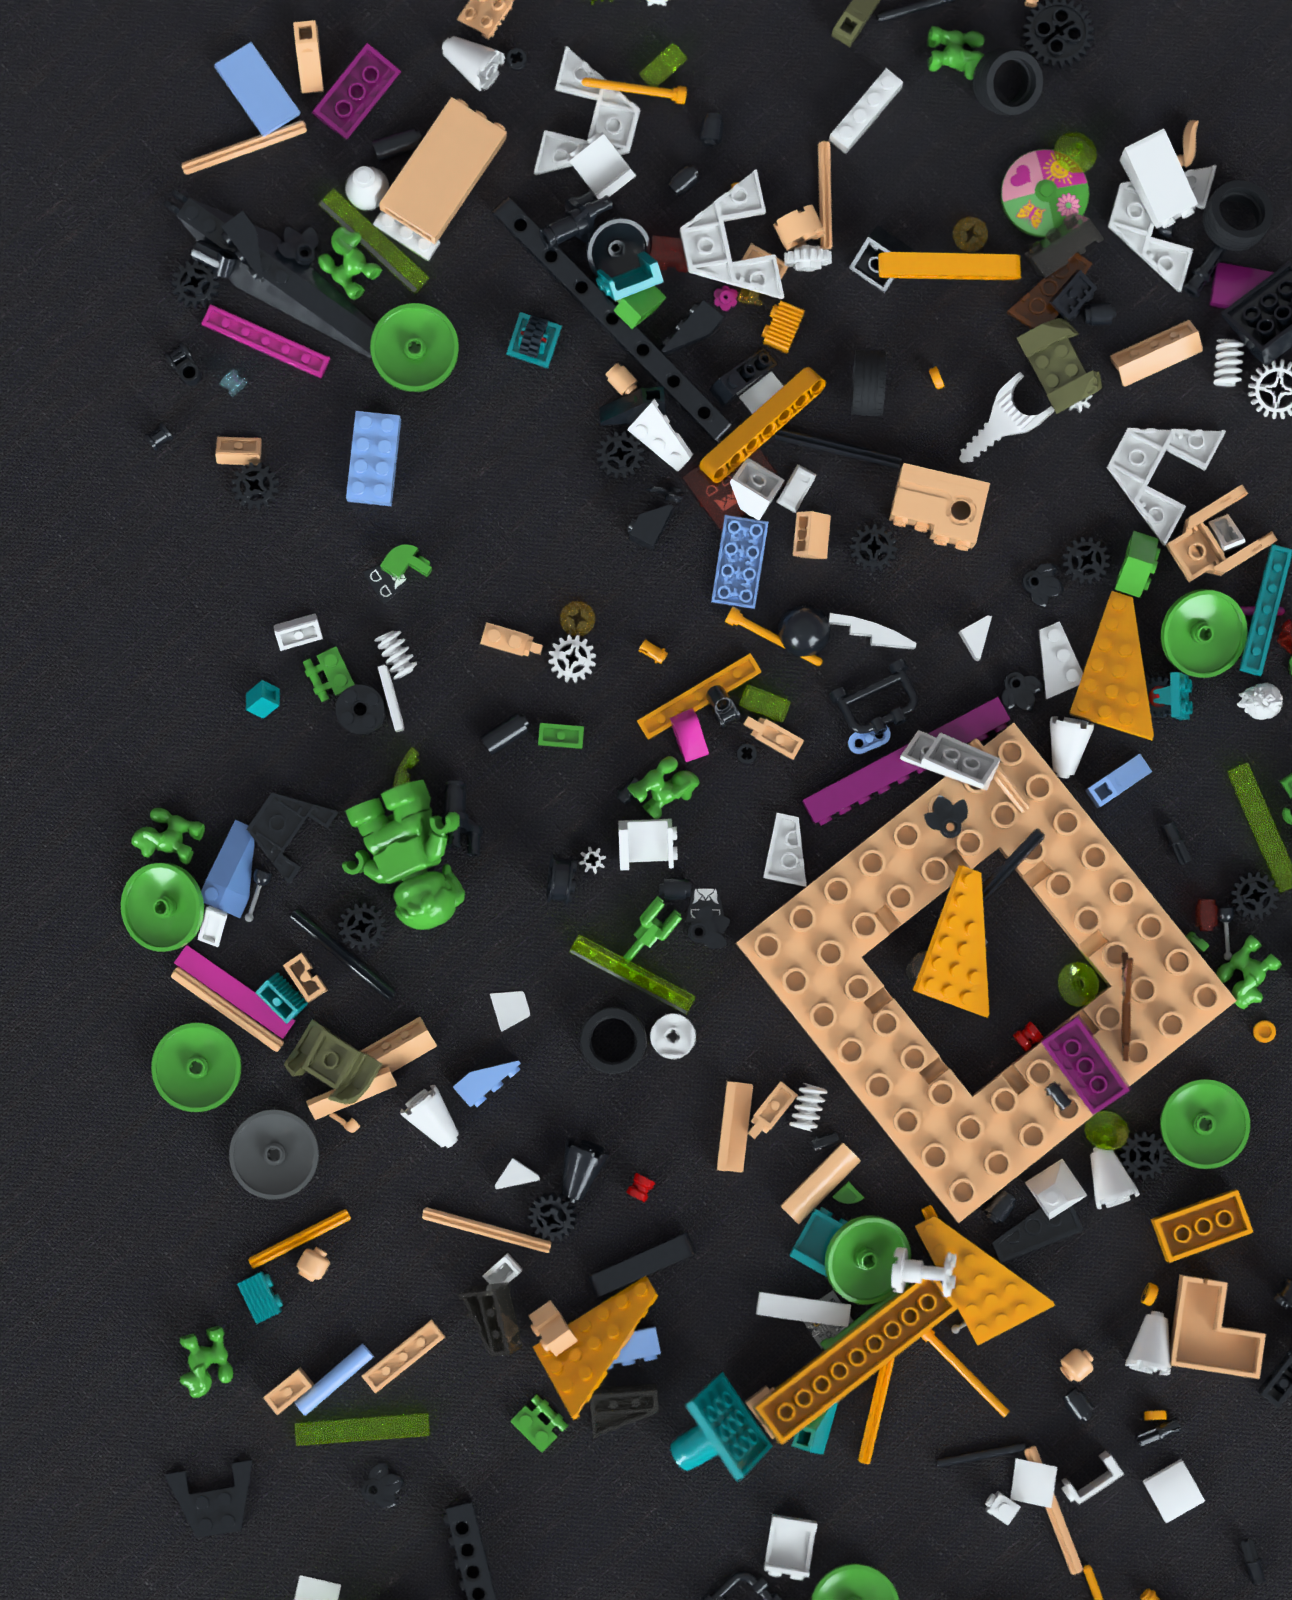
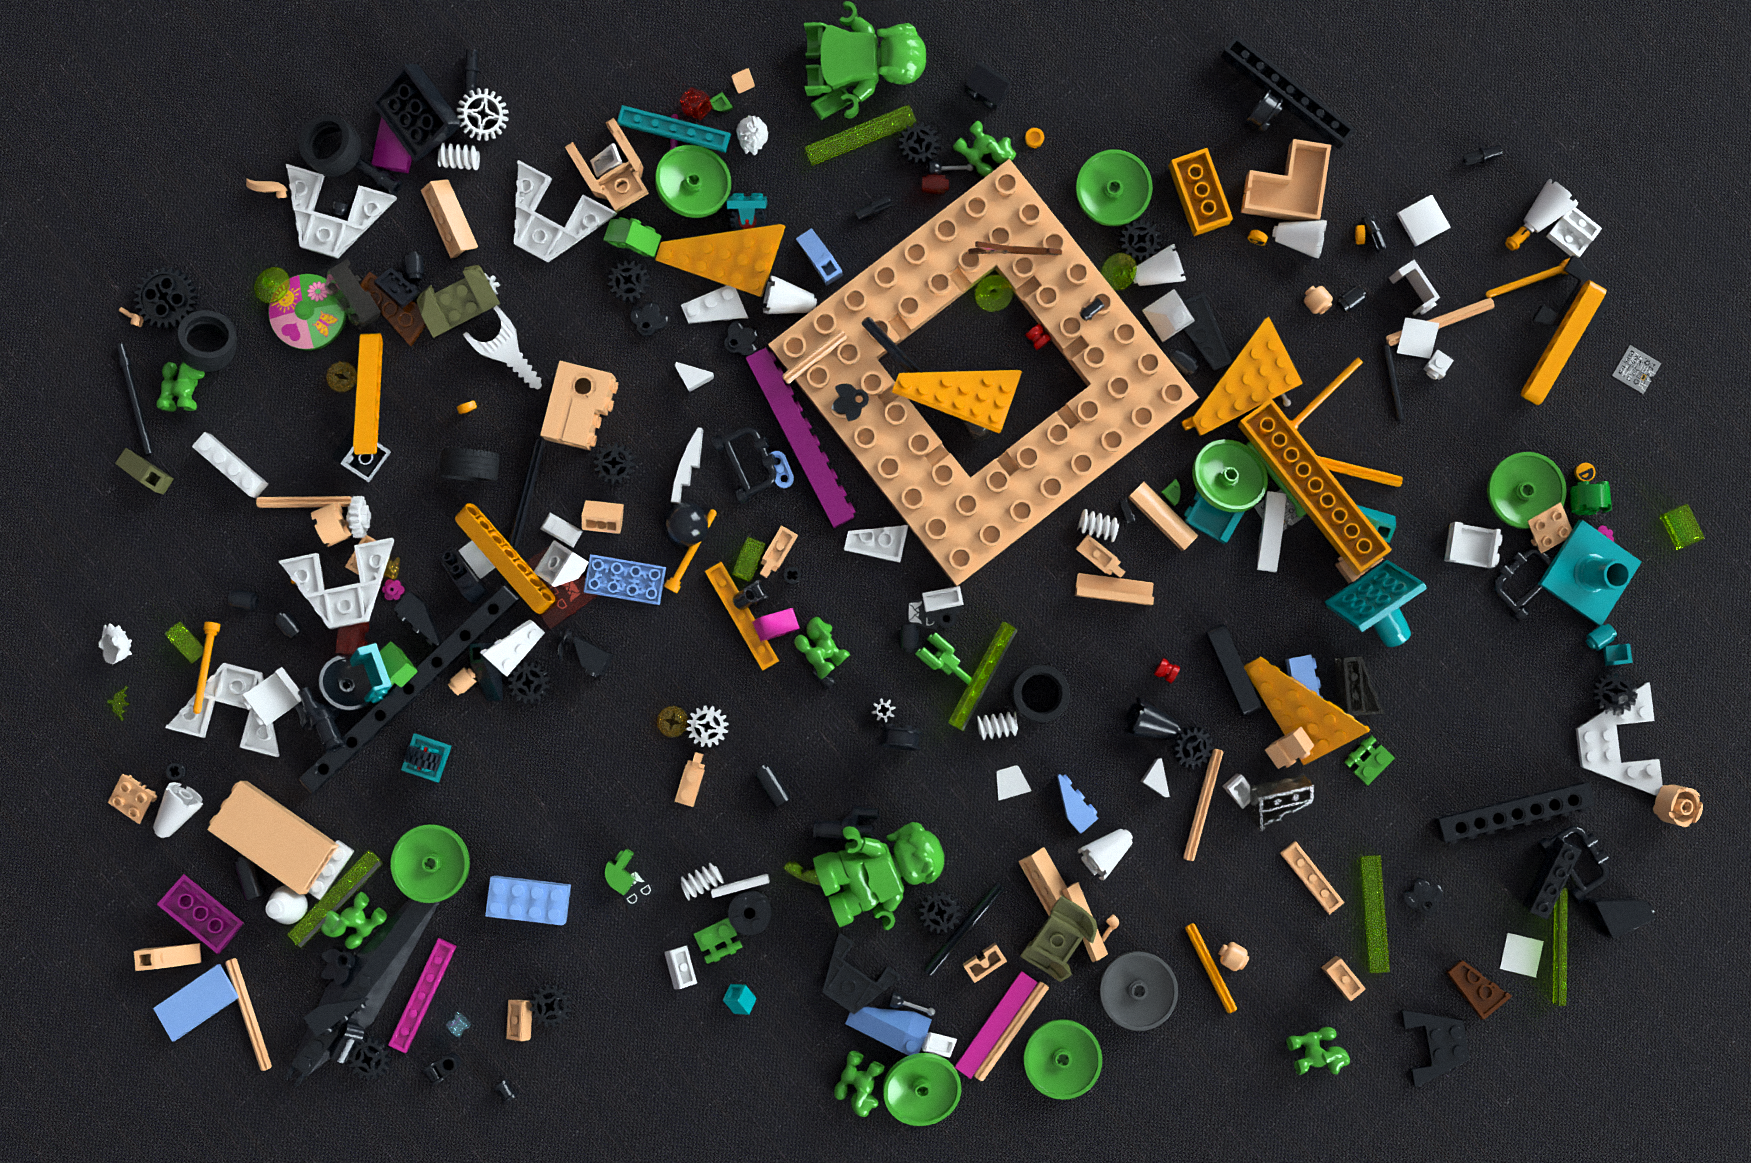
camera: 85 degrees left, 0 degrees up
(260, 1297) = (1262, 1002): teal brick -> none
(275, 1547) = (1477, 990): none -> reddish brown wing
(281, 997) = (1002, 983): teal brick -> none
(333, 1379) = (1332, 938): light blue piece -> none
(561, 735) = (774, 736): bright green plate -> none
(575, 991) = (997, 725): none -> white piece
(647, 841) = (868, 662): white panel -> none
(653, 651) = (702, 655): light orange pin -> none
(672, 1036) = (1038, 641): white piece -> none
(721, 926) = (942, 599): none -> white tile
(783, 326) = (418, 539): light orange brick -> none
(915, 1271) = (1241, 434): white piece -> none
(951, 759) = (800, 396): white slope -> none
(1086, 1065) = (1065, 285): magenta slope -> none
(1159, 179) = (295, 211): white slope -> none
(1198, 943) = (960, 190): bright green tile -> none

